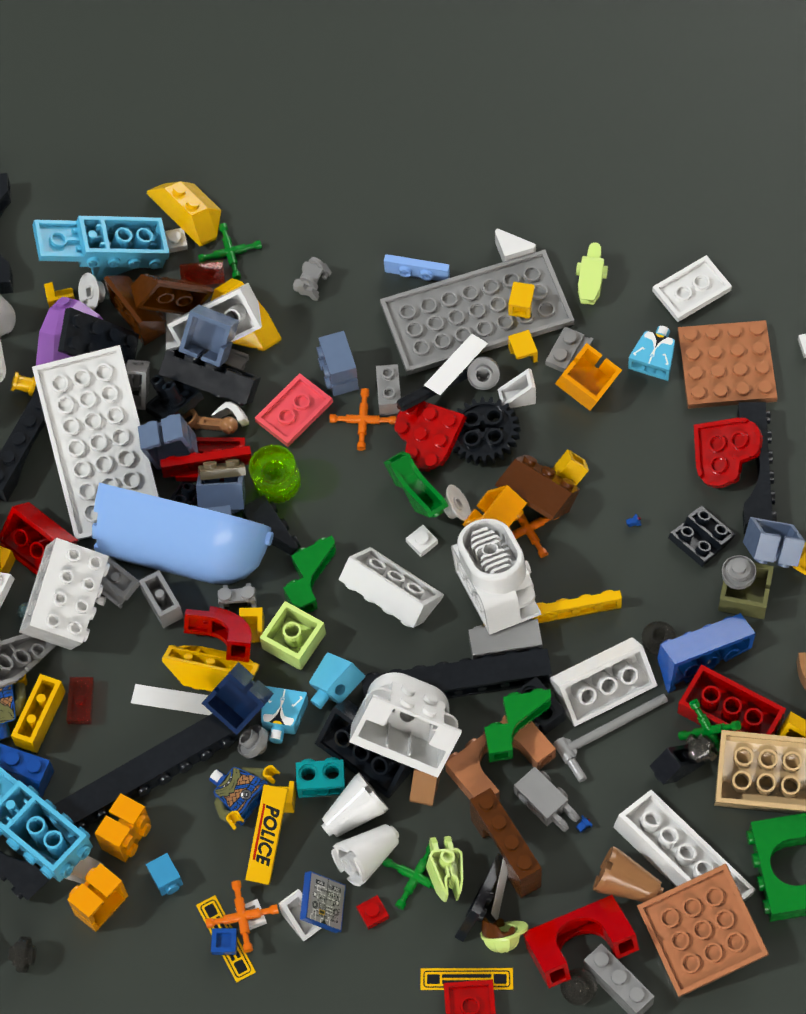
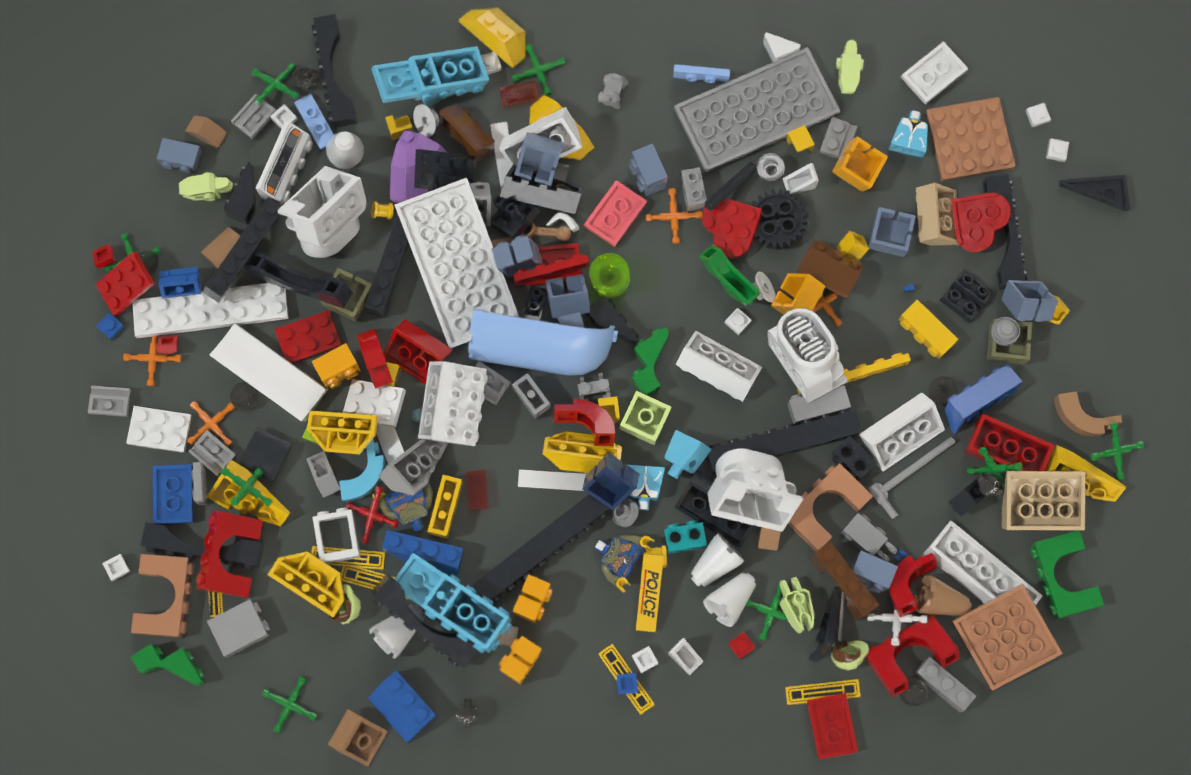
camera: 15 degrees left, 15 degrees up
(164, 875) = (570, 633): dark azure brick -> none
(168, 294) = (496, 119): reddish brown slope -> none
(212, 470) = (566, 278): dark tan plate -> none
(242, 916) = (639, 662): orange piece -> none
(322, 902) = (702, 644): tile -> none
(455, 364) = (747, 162): white sticker -> none
(519, 711) = (840, 469): green arch -> none
(521, 300) = (795, 98): yellow panel -> none
(545, 836) = (873, 571): none -> sand blue piece
(568, 895) = (896, 622): none -> white piece
(583, 848) = (904, 576): none -> red arch
(617, 460) = (890, 234): none -> sand blue piece
(649, 568) = (927, 329): none -> yellow brick
(674, 442) = (936, 215): none -> tan slope

